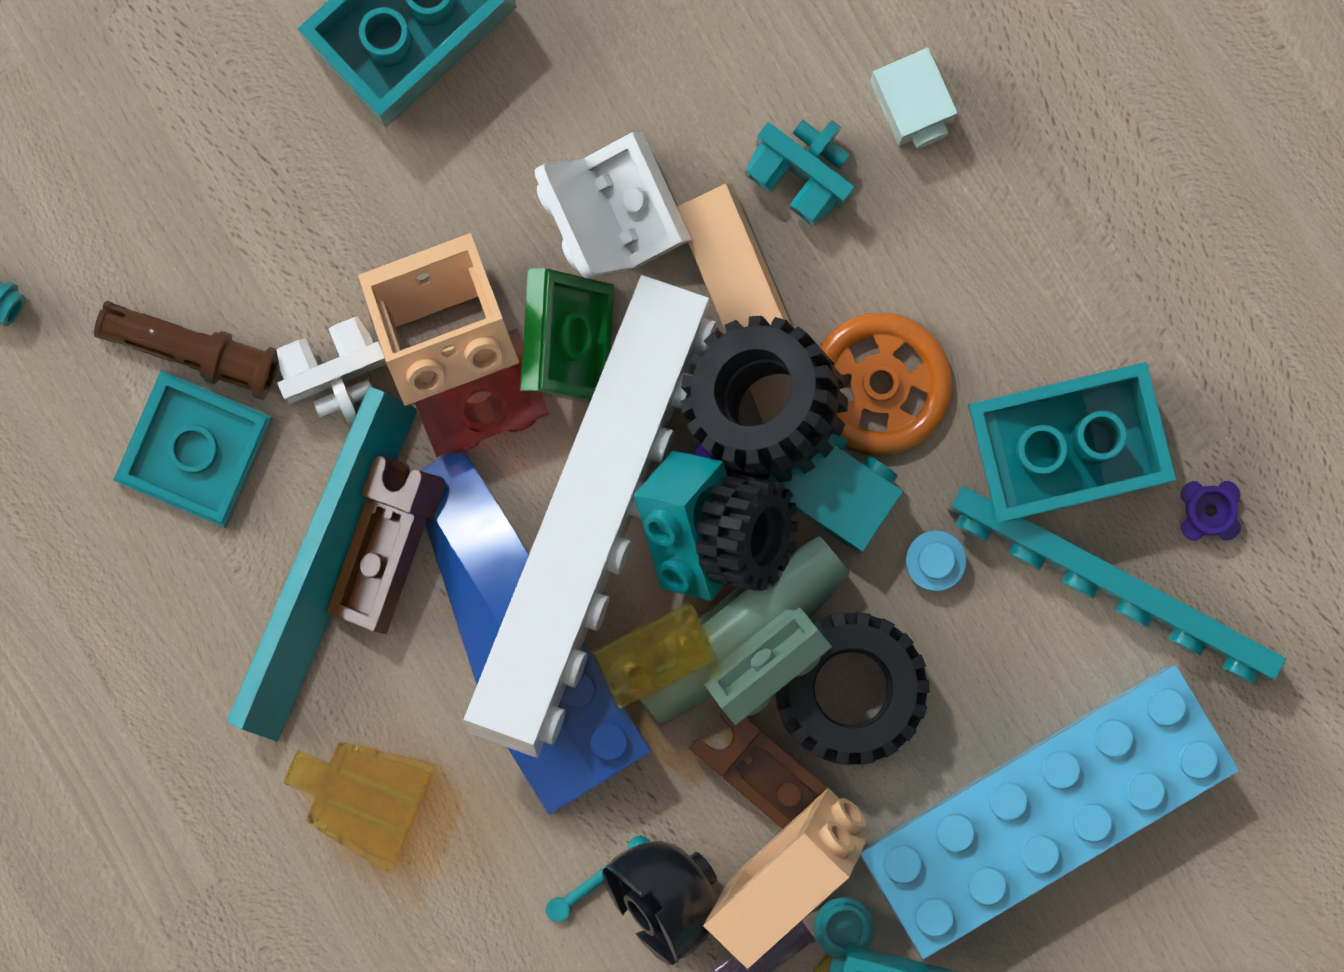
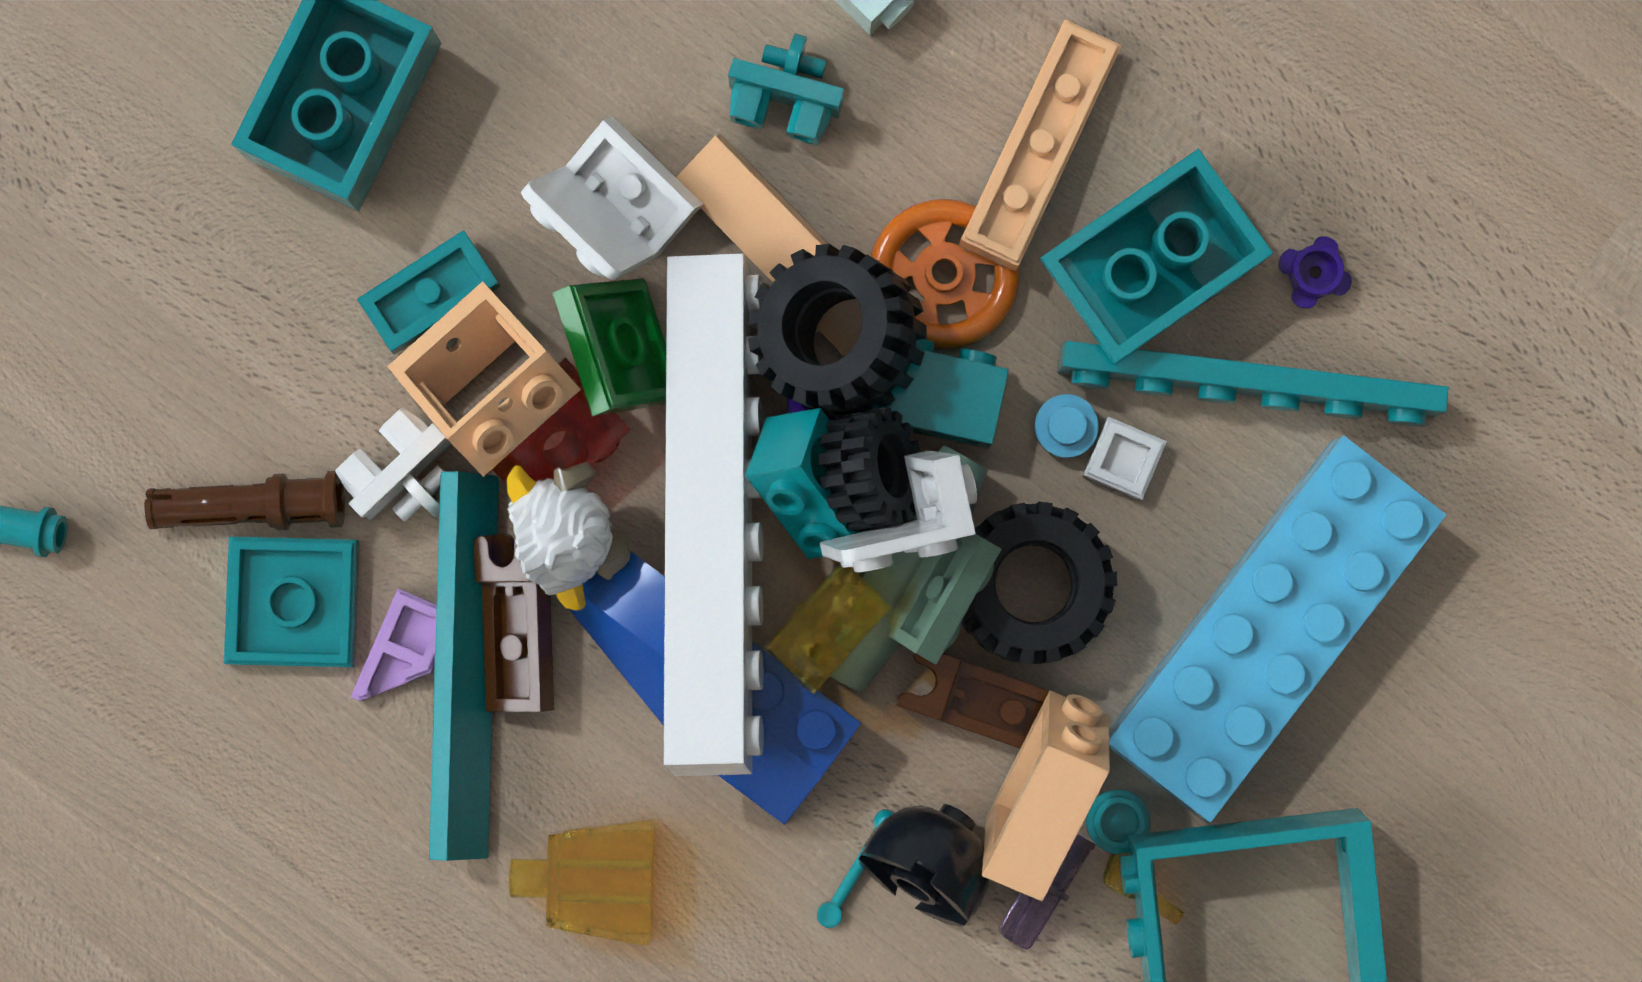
camera: 25 degrees left, 0 degrees up
(274, 527) = (402, 647): none -> lavender tile
(417, 222) = (425, 291): none -> teal plate
(456, 482) = (563, 532): none -> white hair
(797, 581) = (942, 502): none -> white bracket
(976, 609) = (1124, 458): none -> white tile
(1010, 303) = (1040, 145): none -> light nougat tile

